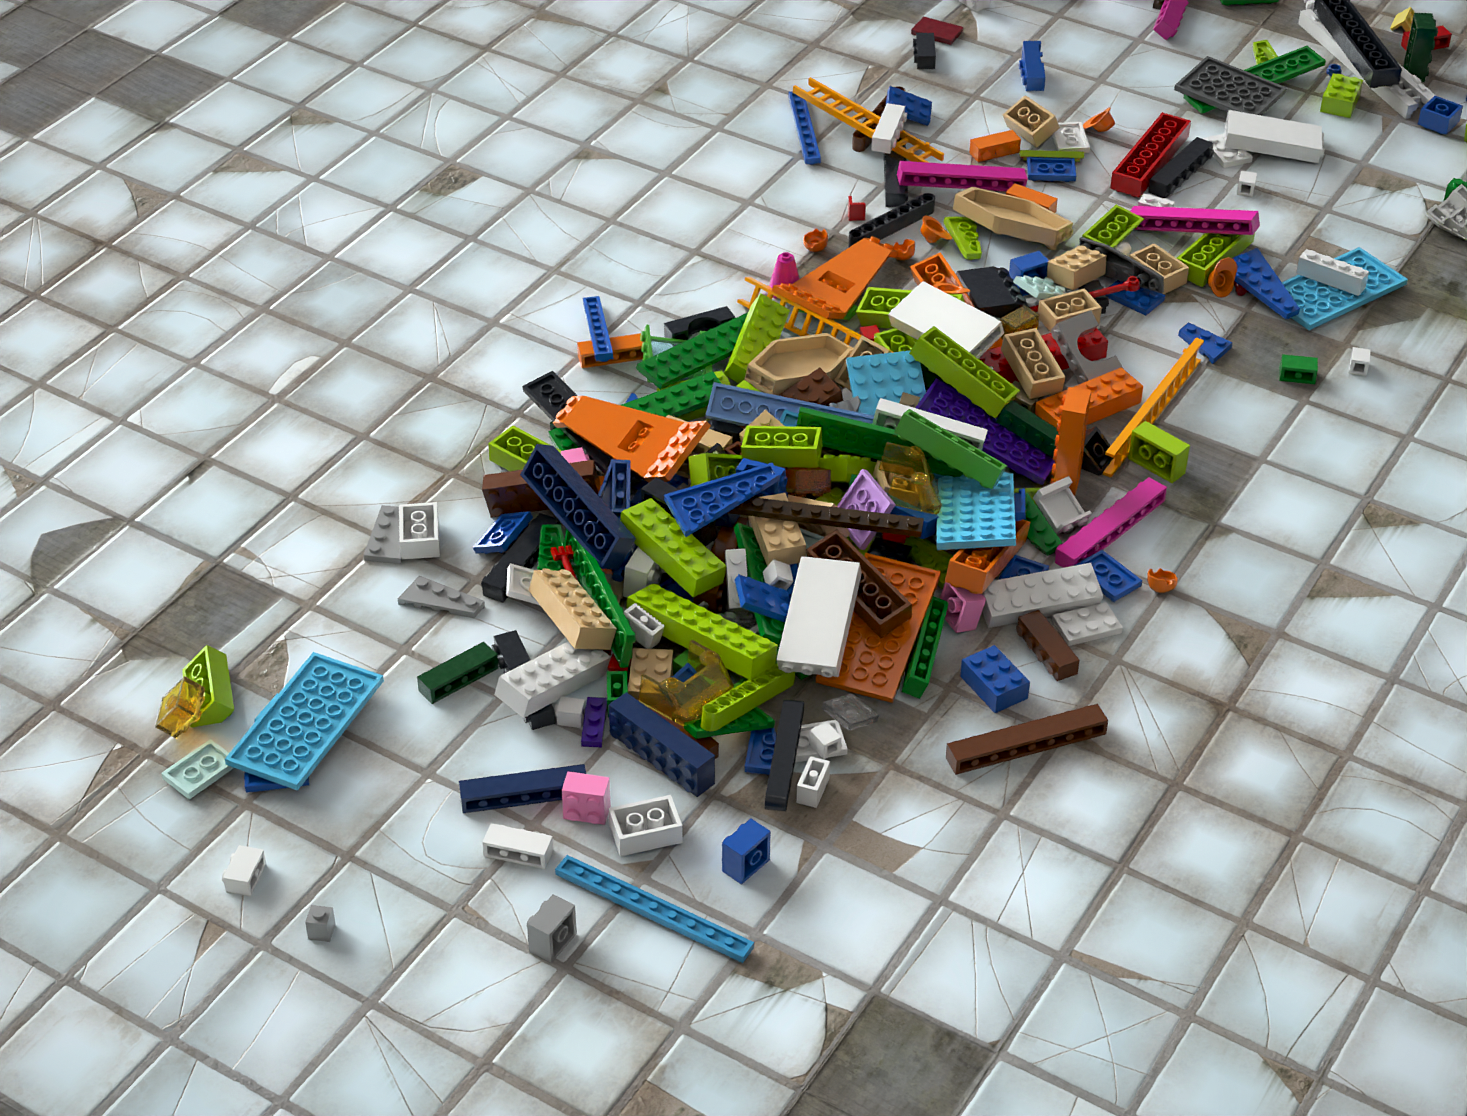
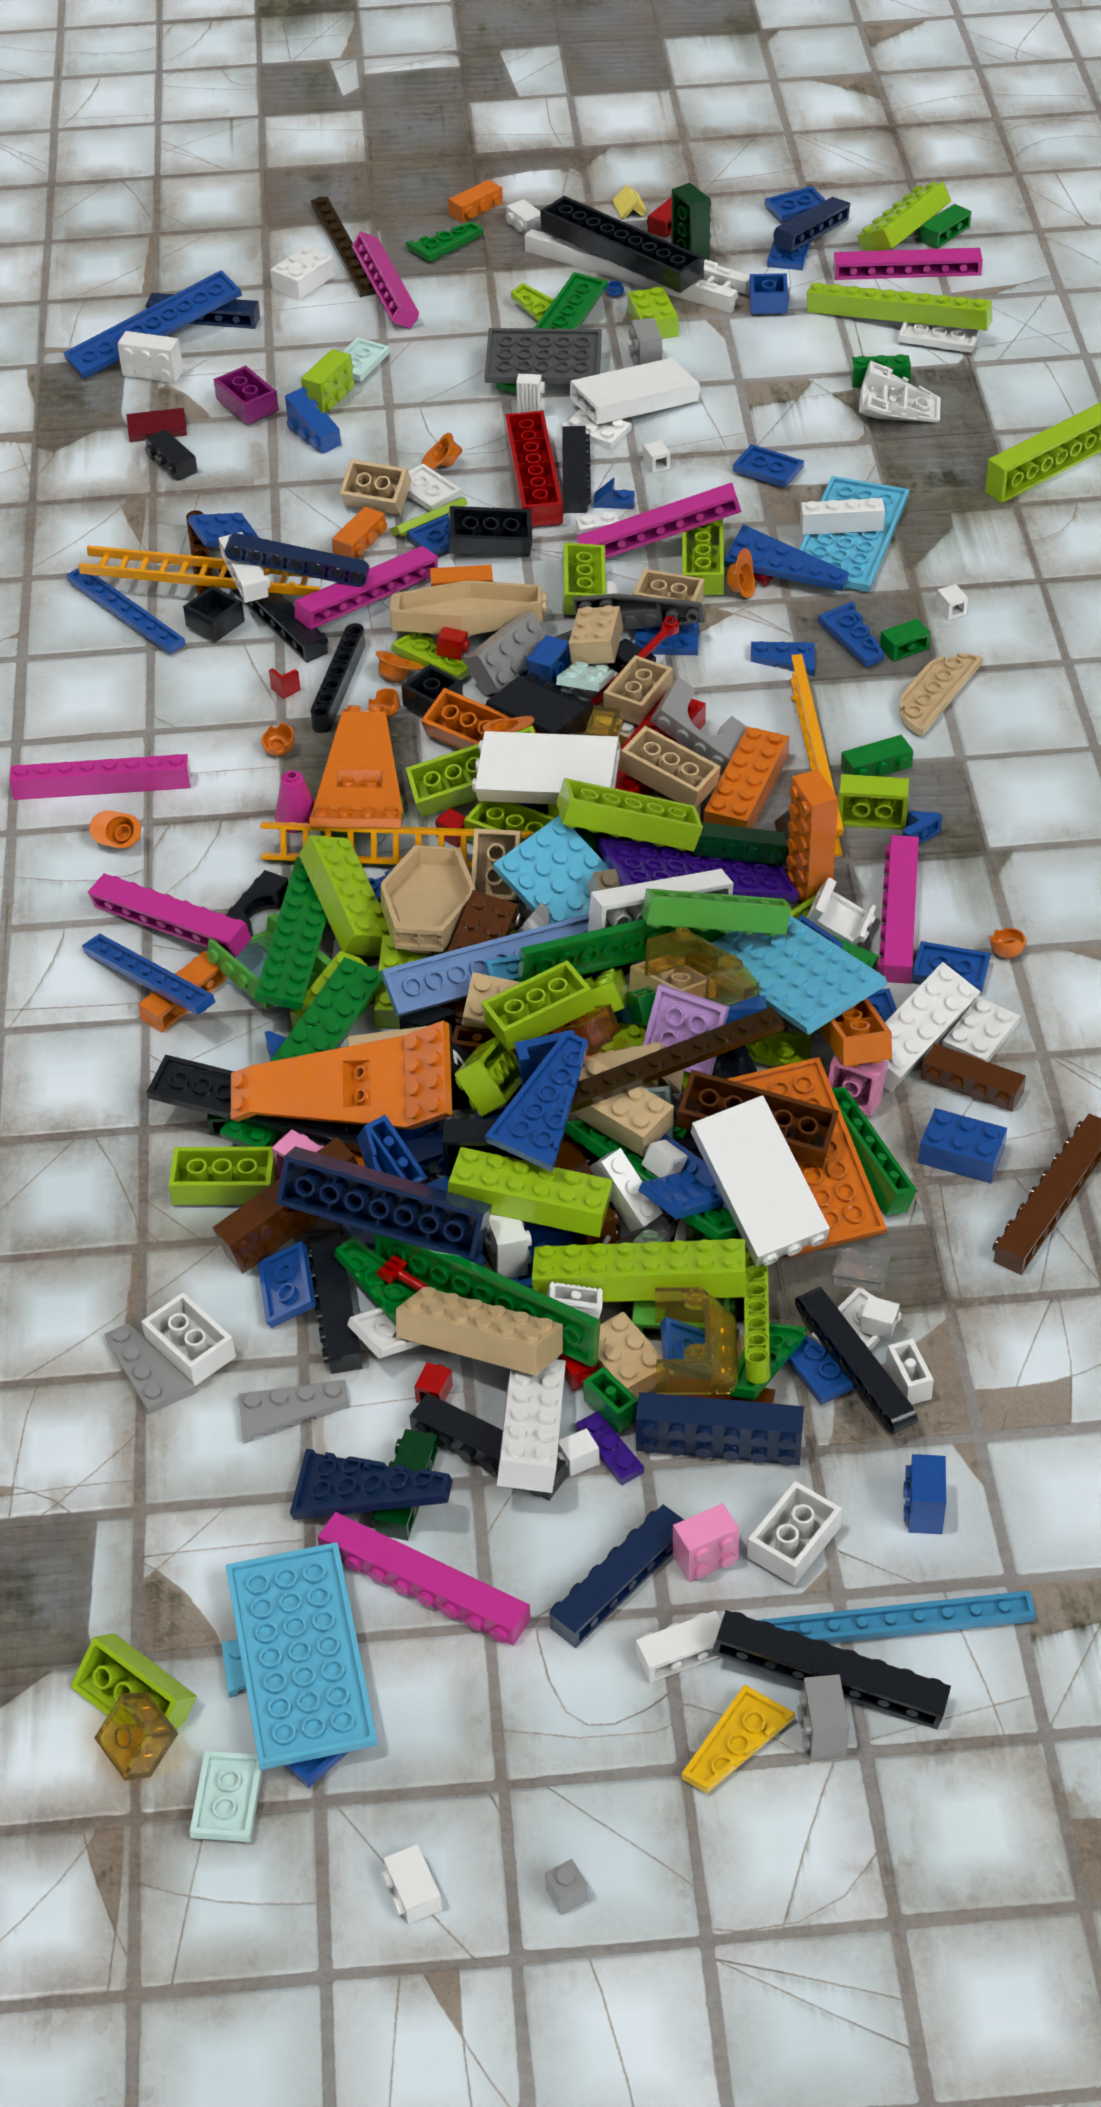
camera: 35 degrees left, 5 degrees up
(415, 727) = (427, 1580): none -> dark pink brick
(426, 654) = (362, 1485): none -> dark blue wing
(499, 910) = (738, 1734): none -> yellow wing
(529, 630) = (435, 1381): none -> red brick
(591, 913) = (862, 1678): none -> black brick
(645, 303) = (169, 914): none -> dark pink brick
(665, 244) = (115, 829): none -> orange piece
(690, 212) = (100, 777): none -> dark pink brick
(851, 151) = (213, 613): none -> black piece
(921, 136) = (285, 561): none -> dark blue beam
(945, 245) = (425, 687): none -> black brick
(981, 232) = (452, 643): none -> red brick
(1000, 251) = (505, 653): none -> light grey brick
(1007, 34) = (246, 394): none -> magenta brick
(1067, 47) = (329, 379): none -> lime brick
(1076, 178) = (489, 531): none -> black brick
(1108, 44) = (365, 356): none -> light aqua plate
(1180, 486) = (922, 825): none -> blue slope
(1190, 197) = (610, 498): none -> blue slope
(1196, 108) = (530, 393): none -> white brick
(1196, 430) = (878, 757): none -> green brick
(1266, 348) = (848, 628): none -> blue wing
(1287, 409) = (935, 689): none -> tan plate
(1312, 107) = (646, 341): none -> light grey brick
(1321, 222) = (768, 466): none -> blue plate

